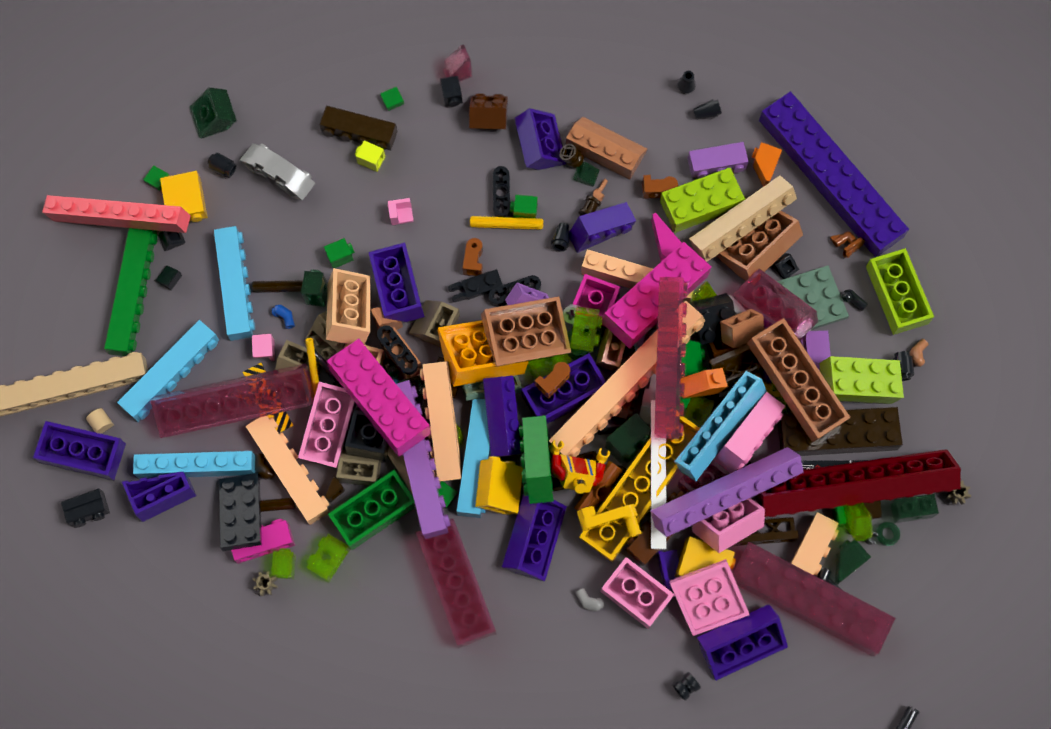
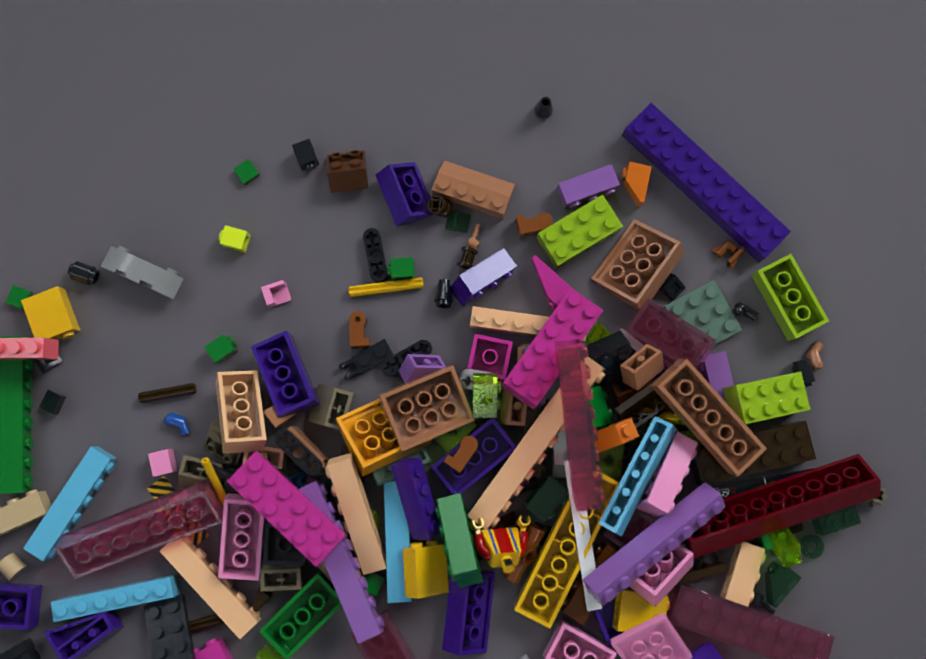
camera: 15 degrees left, 10 degrees up
(212, 112) = (63, 217): clear green slope -> none
(233, 283) = (119, 398): medium azure brick -> none
(260, 467) = (185, 588): dark brown arm -> none
(314, 288) = (202, 392): clear green brick -> none
(358, 127) = (217, 210): dark brown brick -> none
(458, 64) = (307, 126): clear pink slope -> none
(589, 519) = (523, 595): yellow beam -> none
(708, 109) = (569, 133): black cone -> none
(743, 218) = (624, 246): tan brick -> none

